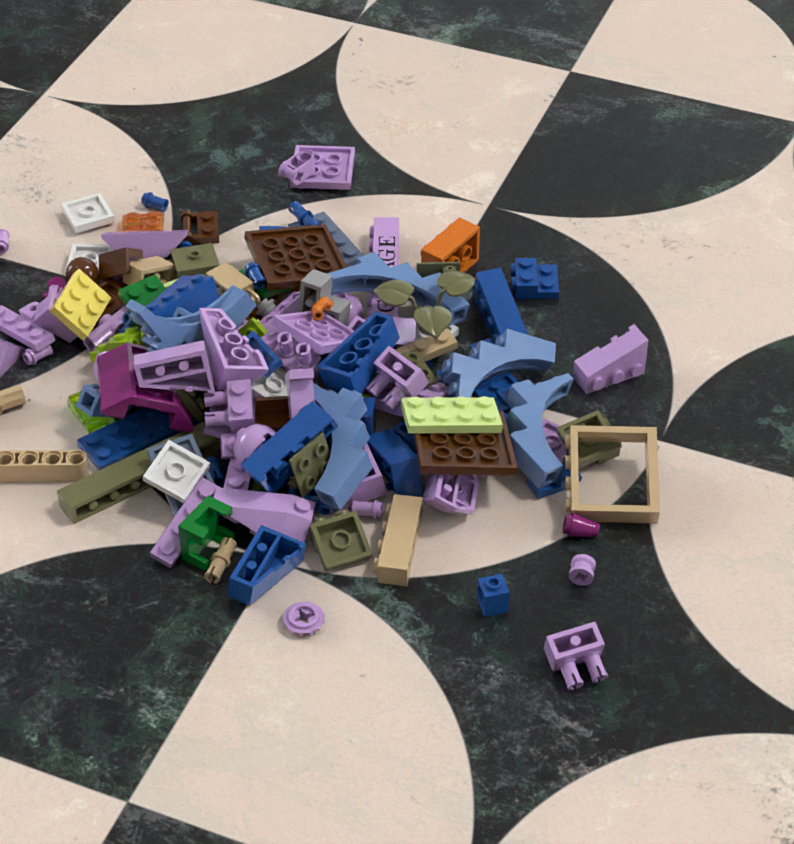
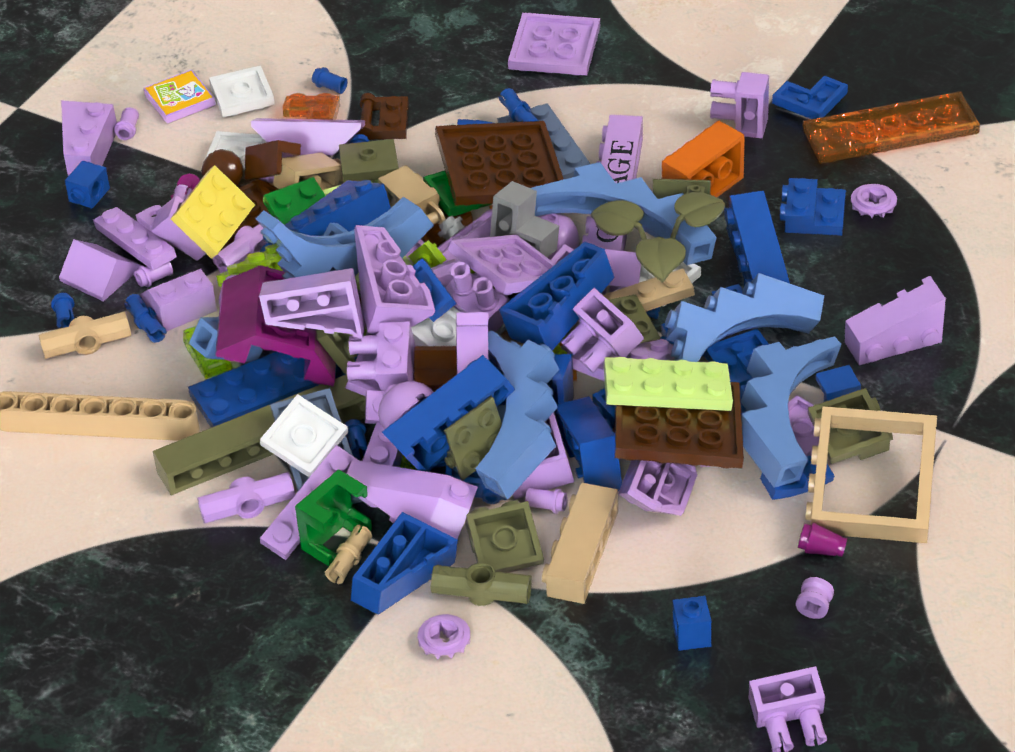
camera: 10 degrees right, 0 degrees up
(35, 388) = (145, 318): none -> blue pin
(39, 219) = (179, 96): none -> tile
(62, 373) = (181, 299): none -> lavender slope
(134, 522) = (246, 497): none -> lavender piece
(253, 272) = (440, 181): blue pin -> none
(298, 166) = (520, 42): lavender piece -> none
(317, 308) = (511, 234): orange arm -> none
(327, 576) = (481, 584): none -> olive piece
(478, 200) = (751, 105): none -> lavender brick
(521, 202) = (810, 103): none -> blue plate
(575, 407) = (837, 382): none -> blue panel
(581, 266) = (879, 194): none -> lavender gear
(582, 217) = (890, 127): none -> clear orange plate

